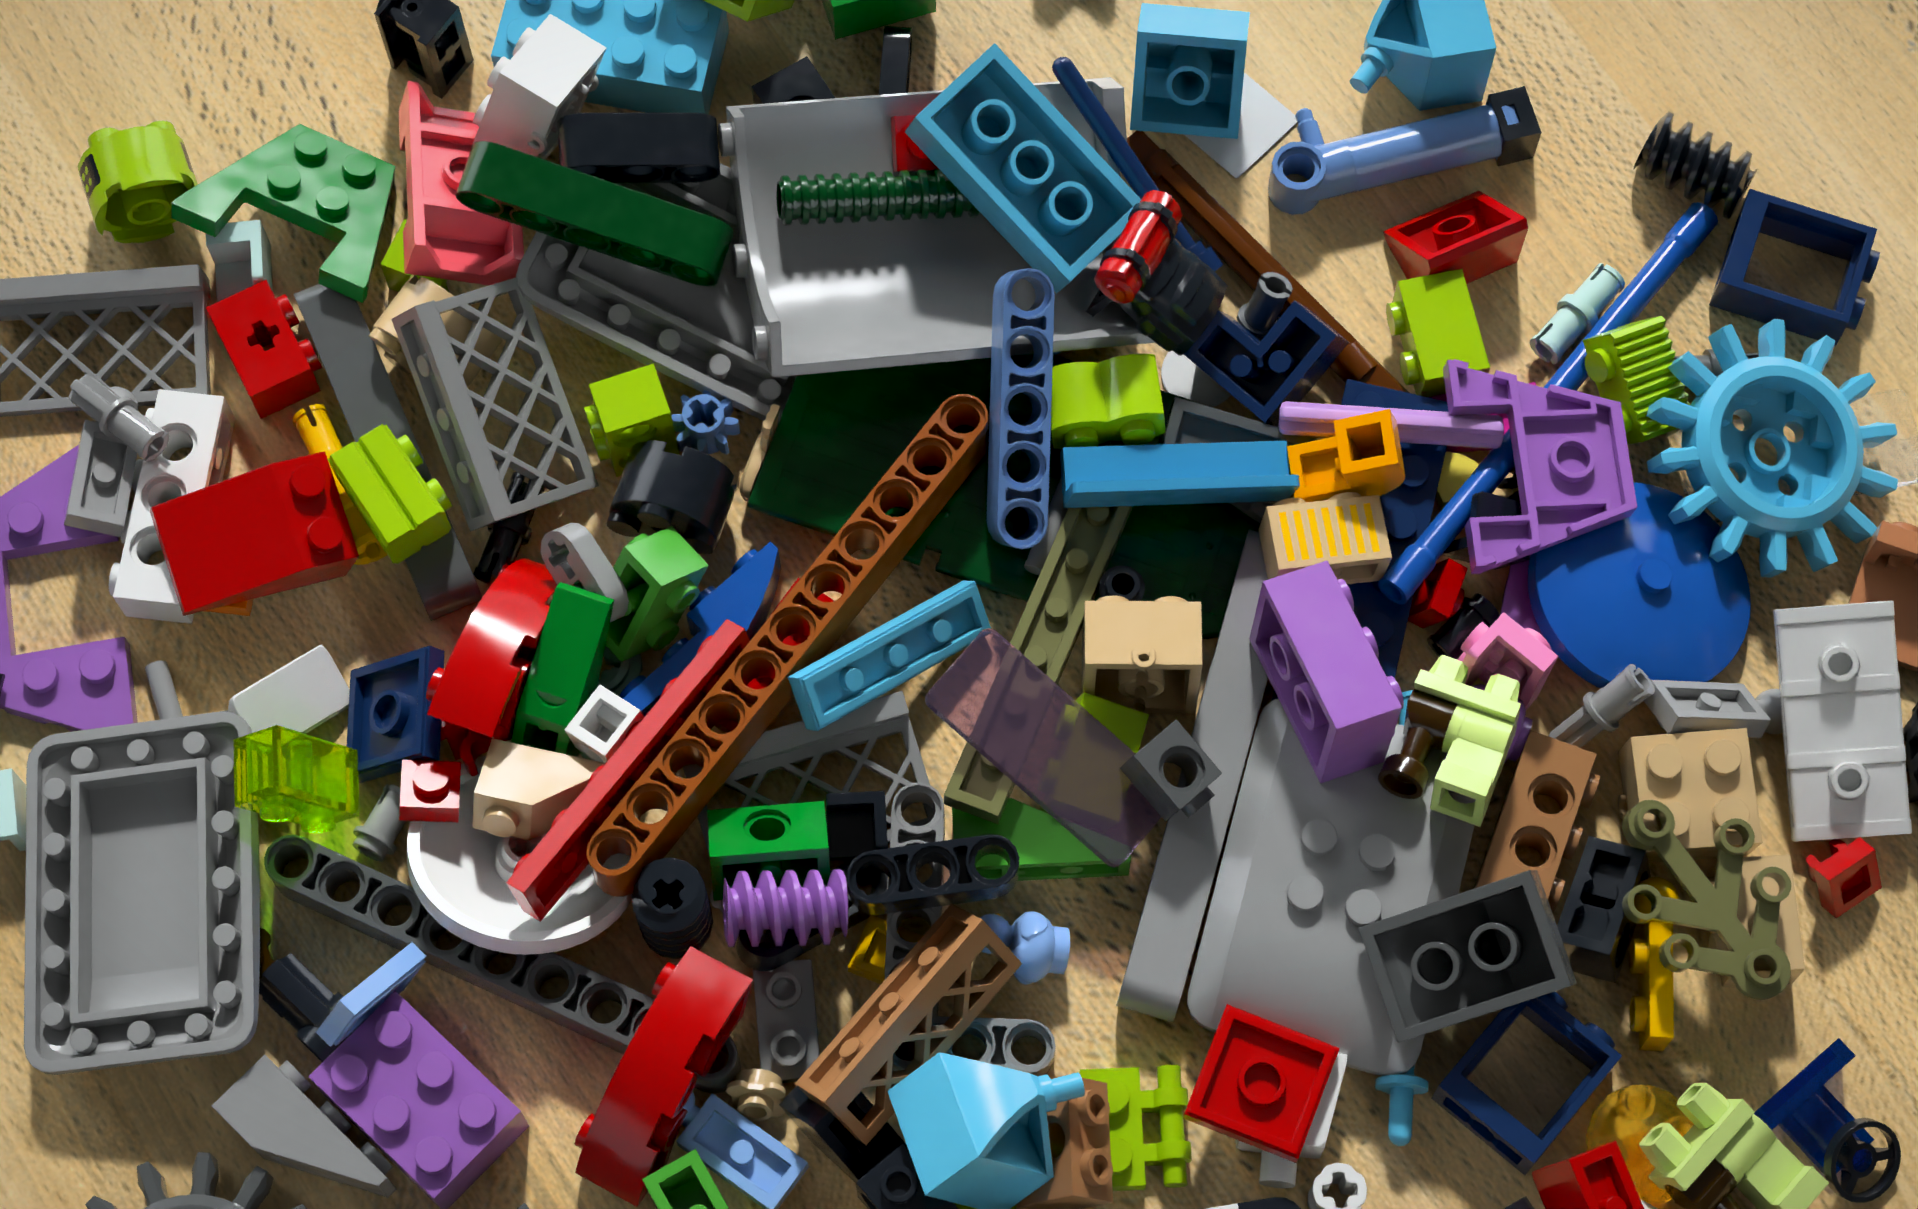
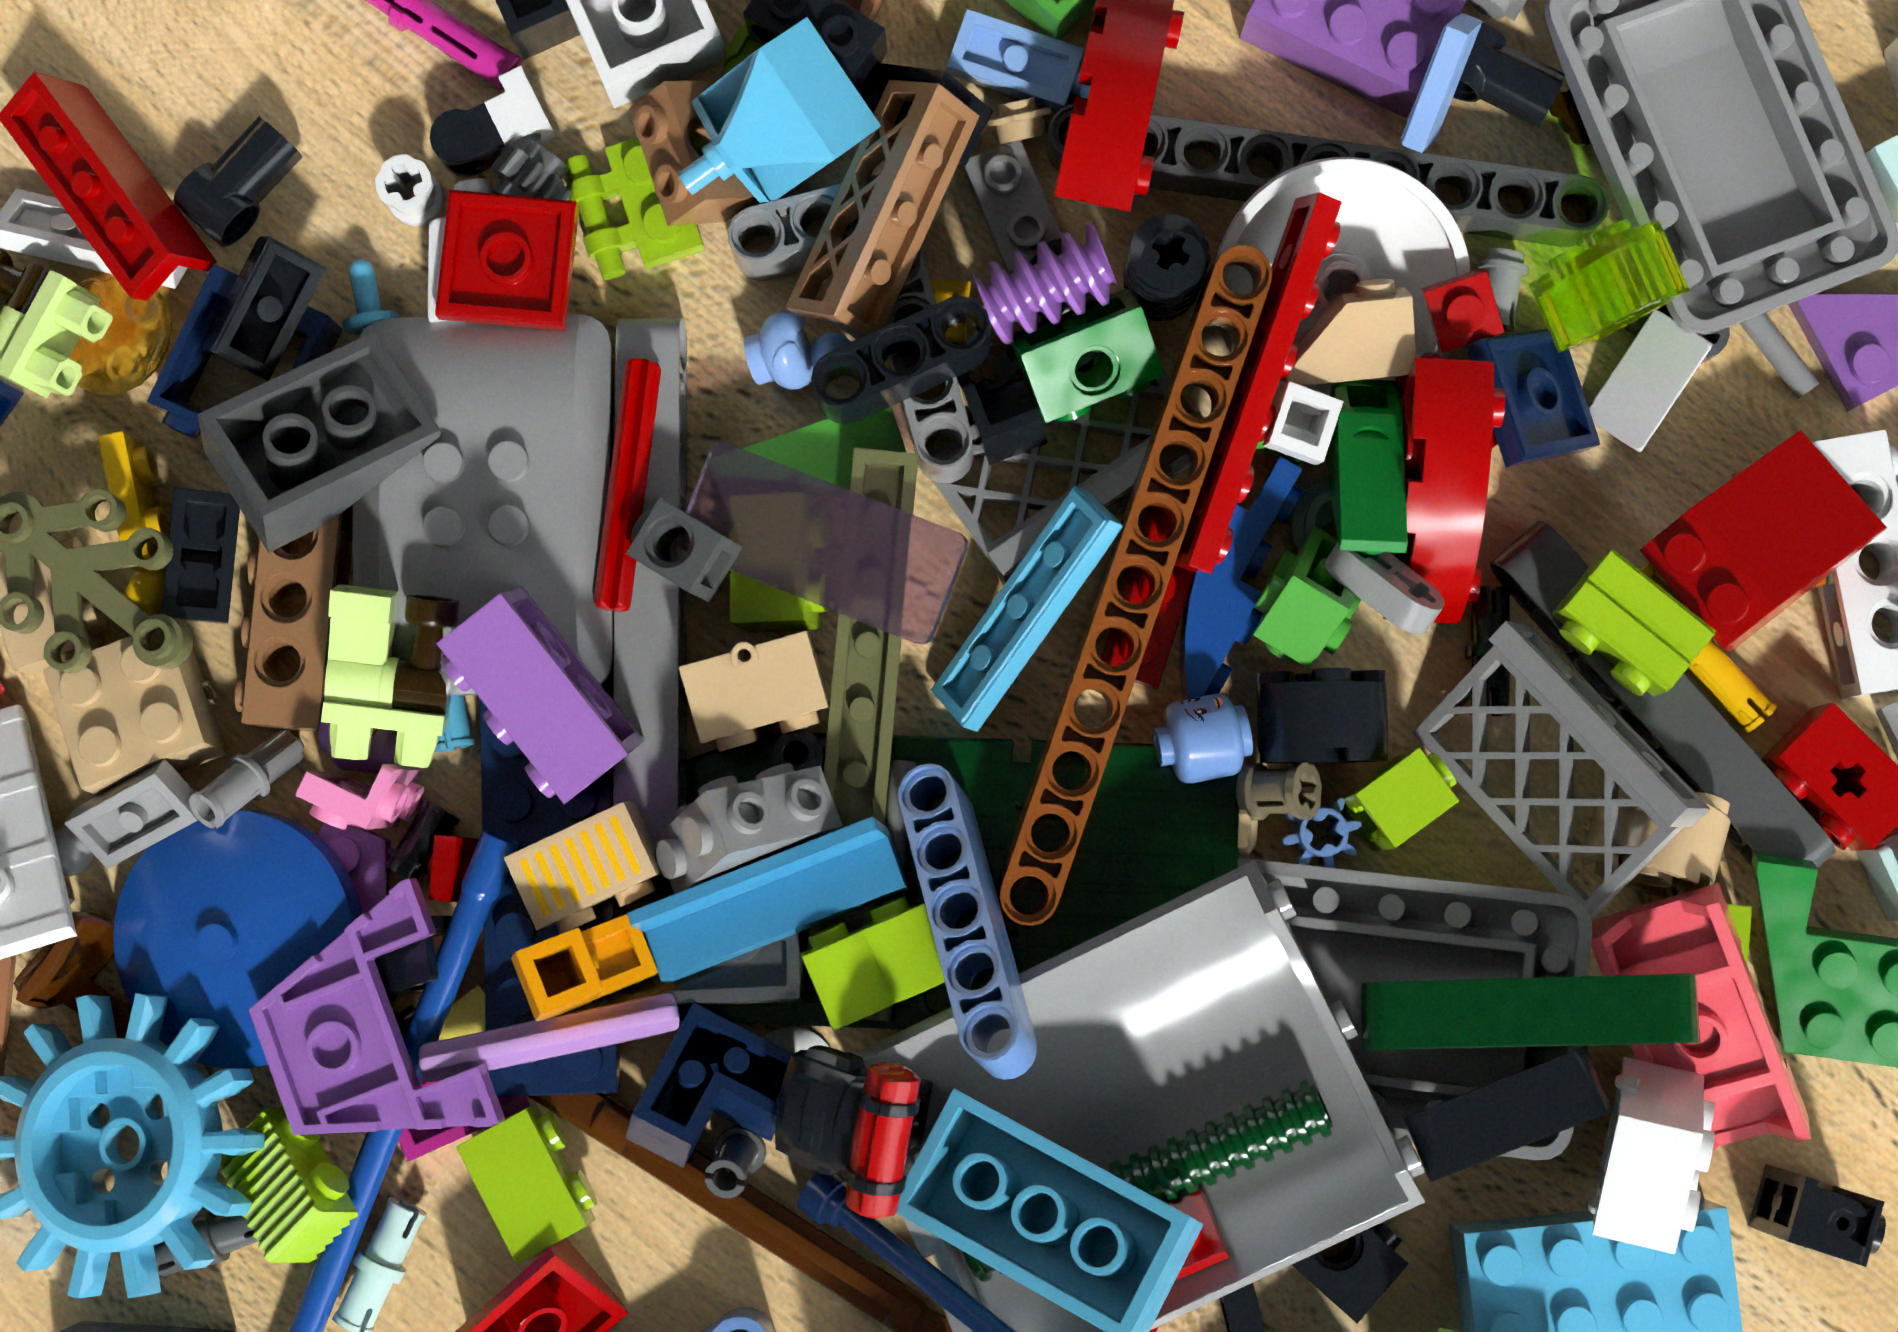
camera: 165 degrees right, 15 degrees up
(739, 456) = (1279, 790): none -> dark tan bush
(777, 507) = (1203, 738): none -> medium blue head
(1182, 528) = (744, 823): none -> light grey brick
(1205, 853) = (627, 483): none -> red axle
(1221, 1169) = (531, 173): none -> dark grey gear
(1497, 1105) = (264, 307): none -> black slope
(1785, 591) = (46, 987): none -> reddish brown piece

